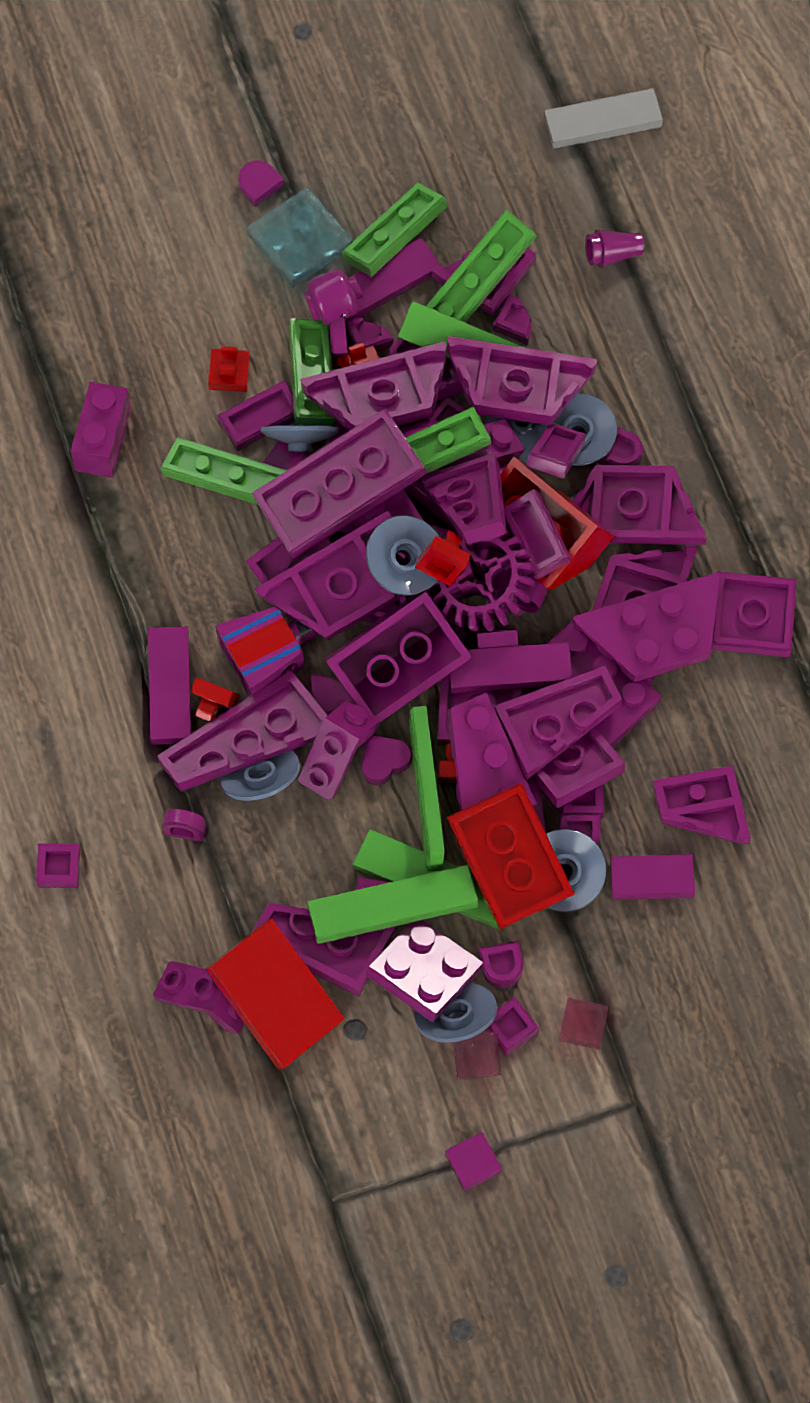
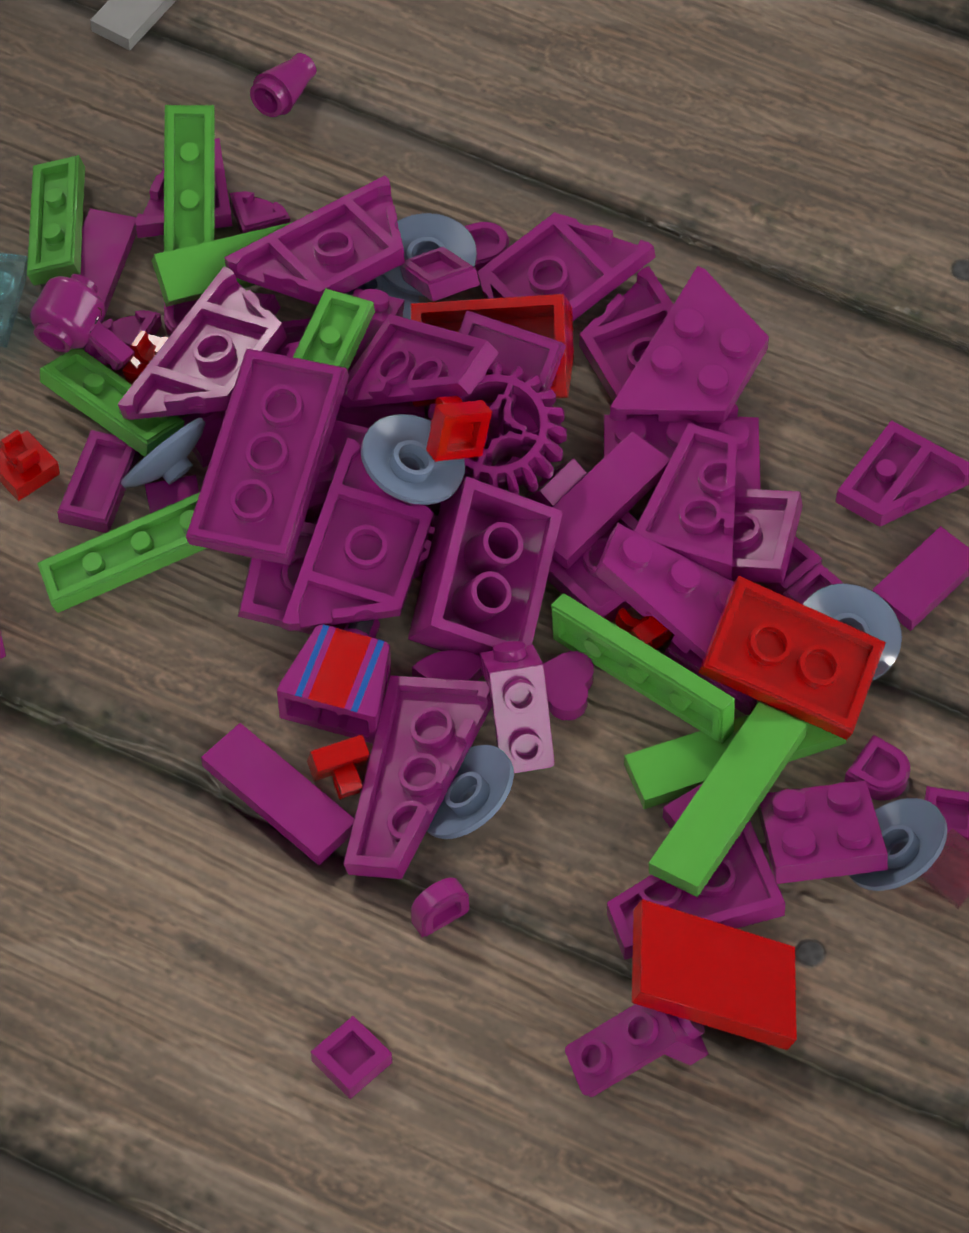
camera: 45 degrees left, 10 degrees down
(754, 614) = (767, 279): magenta plate -> none

